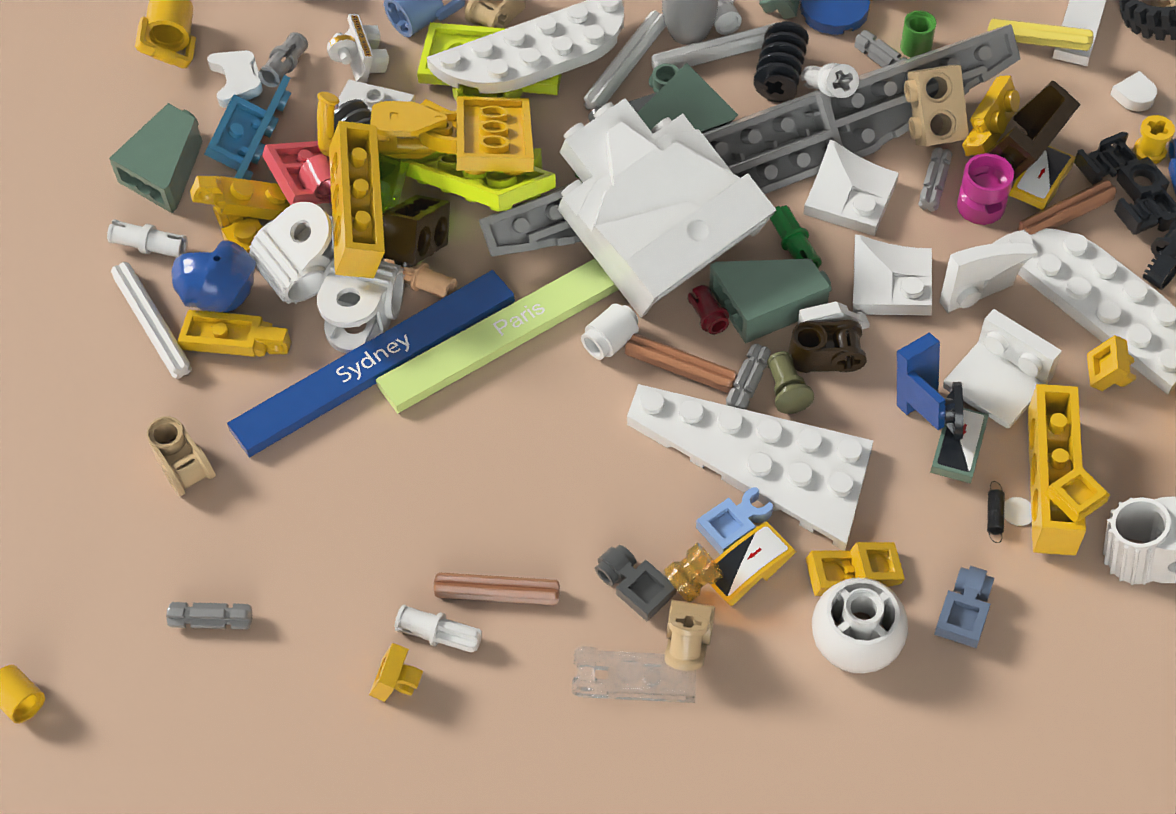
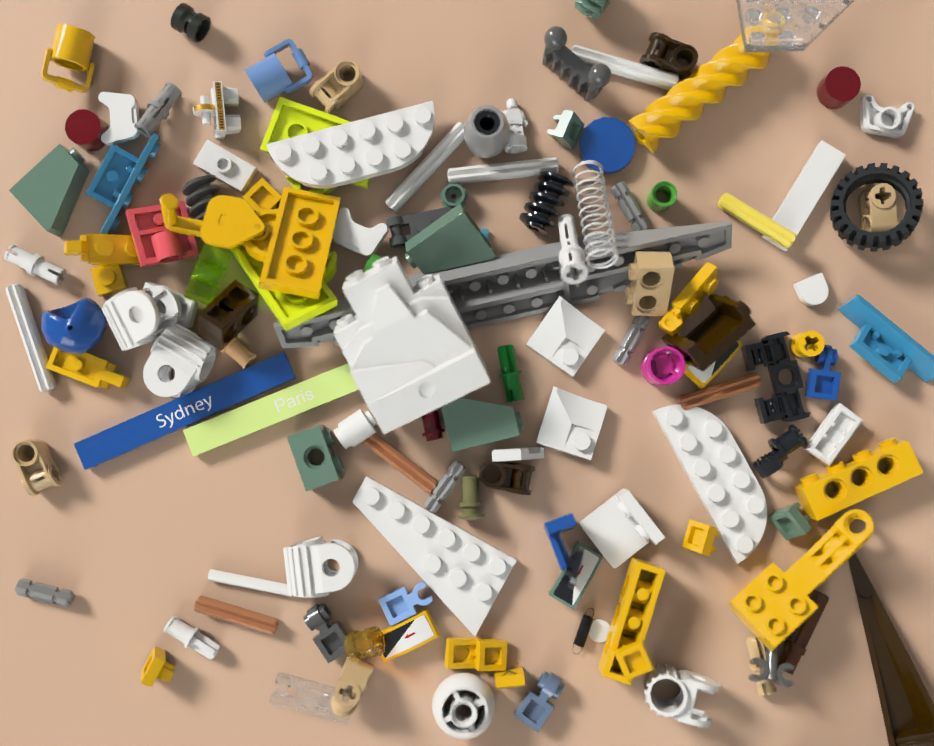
camera: 15 degrees right, 30 degrees up
(197, 93) = (86, 129): none -> dark red piece
(356, 200) = (178, 300): yellow brick -> none
(510, 545) = (248, 582): none -> white bar
(549, 133) = (357, 237): none -> white piece
(570, 392) = (302, 446): none -> sand green brick
(604, 501) = (309, 571): none -> white piece
(867, 45) = (615, 251): none -> white piece
(914, 580) = (510, 678): none -> yellow tile
(982, 272) = (646, 446): white plate -> none

